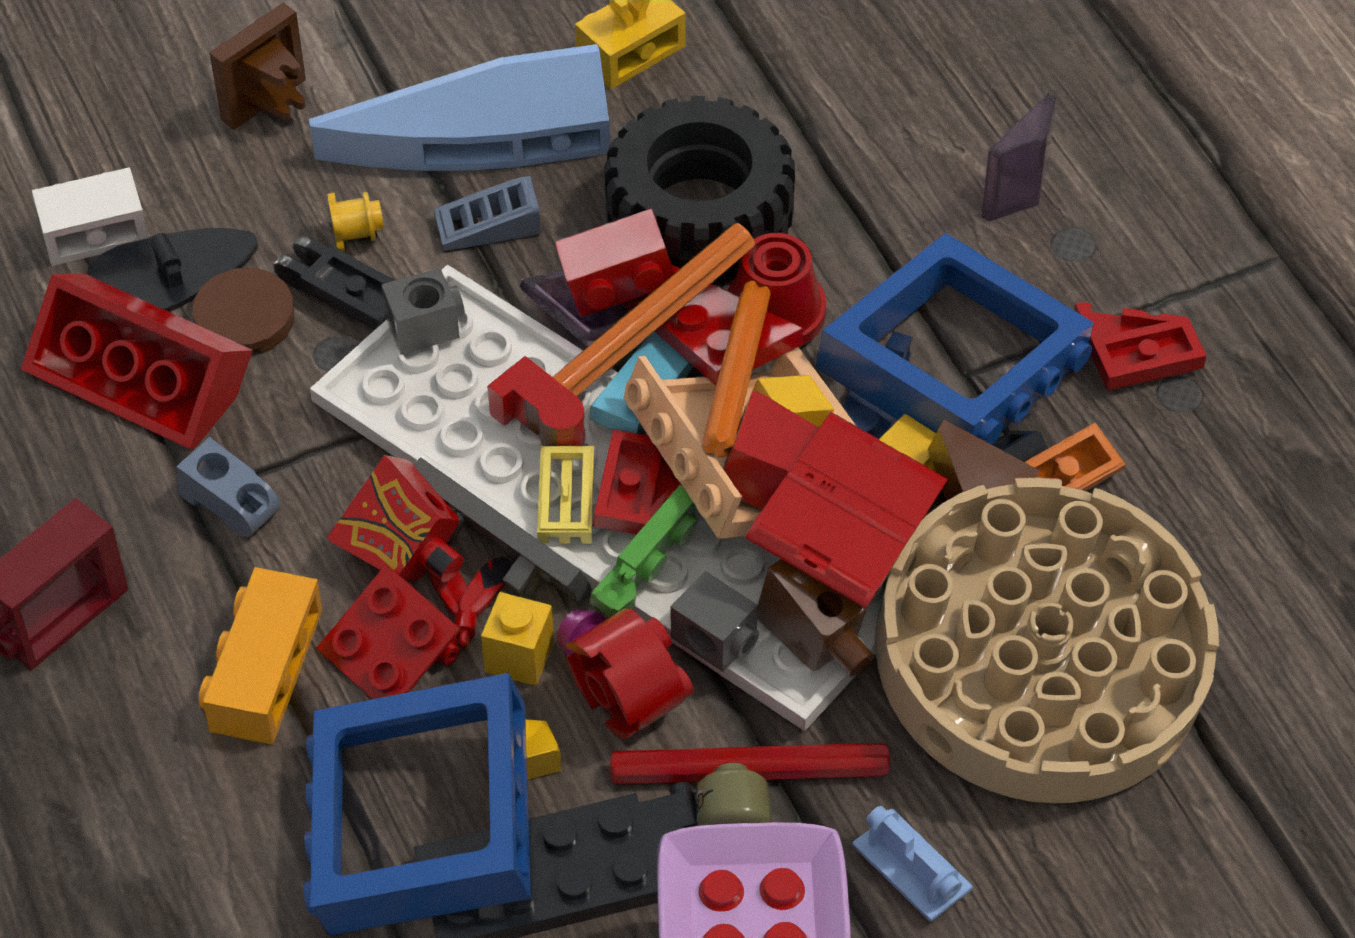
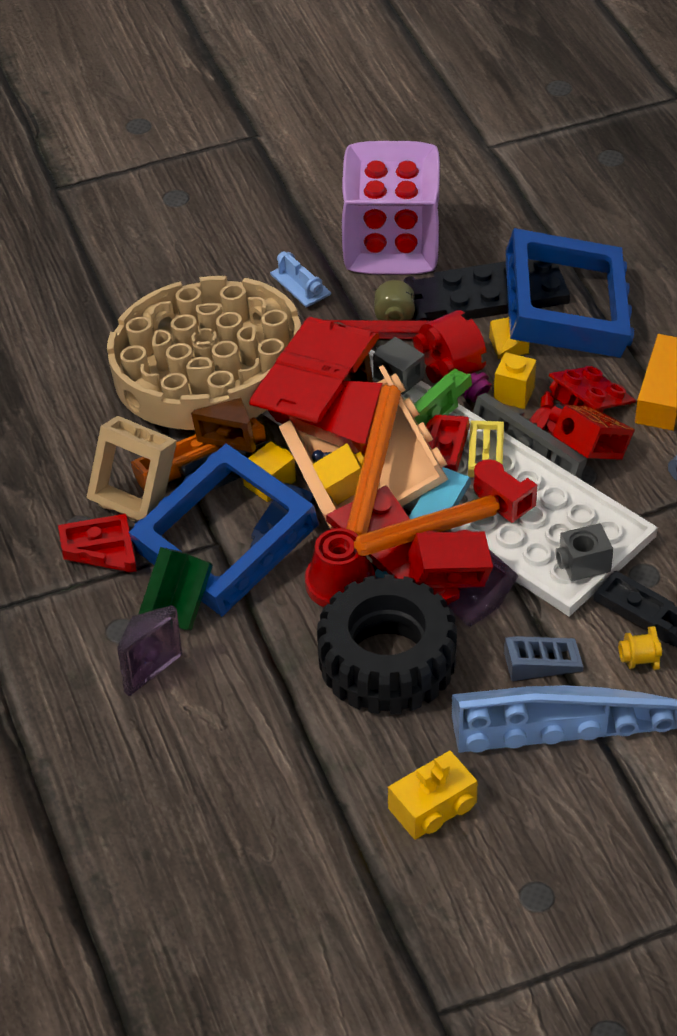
camera: 175 degrees left, 5 degrees down
(1011, 253) = (179, 582): none -> dark green panel
(1106, 386) = (142, 442): none -> tan window

